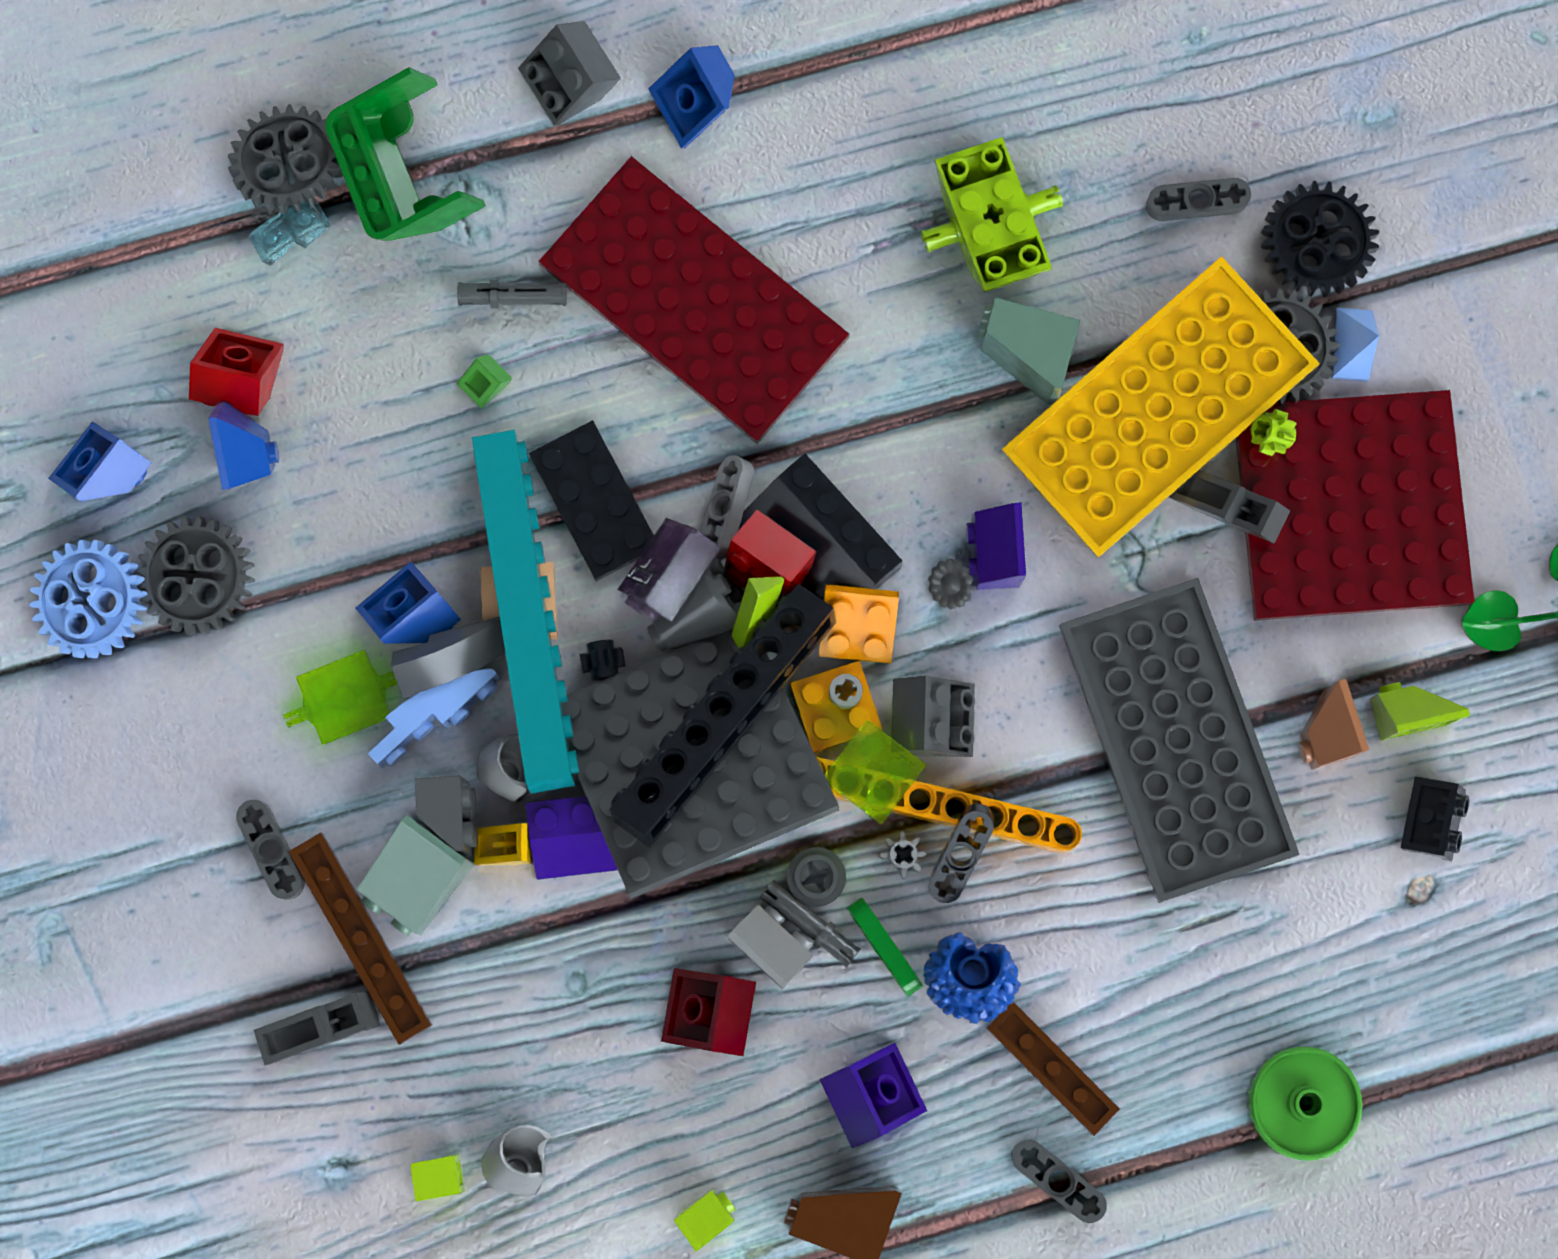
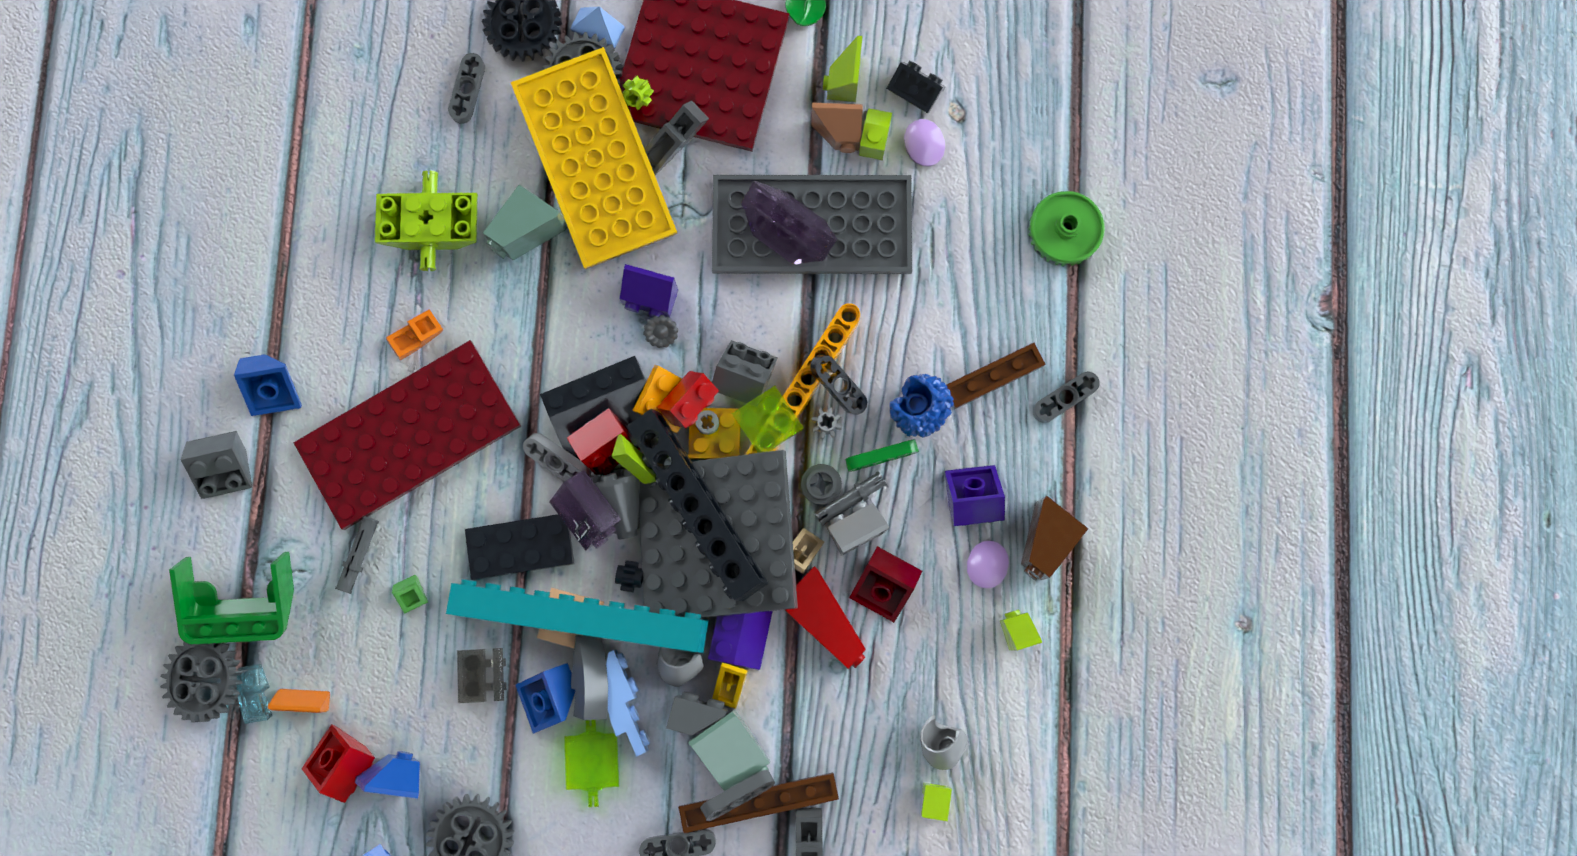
camera: 70 degrees left, 0 degrees up
(299, 293) = (300, 701): none -> orange slope
(359, 905) = (737, 795): none -> dark grey beam
(405, 501) = (472, 675): none -> clear smoke plate
(631, 945) = (825, 620): none -> red slope
(717, 884) = (805, 549): none -> tan slope
(784, 1145) = (987, 564): none -> lavender hat
(830, 259) = (414, 335): none -> orange slope
(866, 653) = (688, 399): none -> red brick
(1160, 704) = (787, 225): none -> clear purple wedge
(1343, 783) = (875, 134): none -> lime slope
(1356, 858) = (924, 142): none -> lavender hat

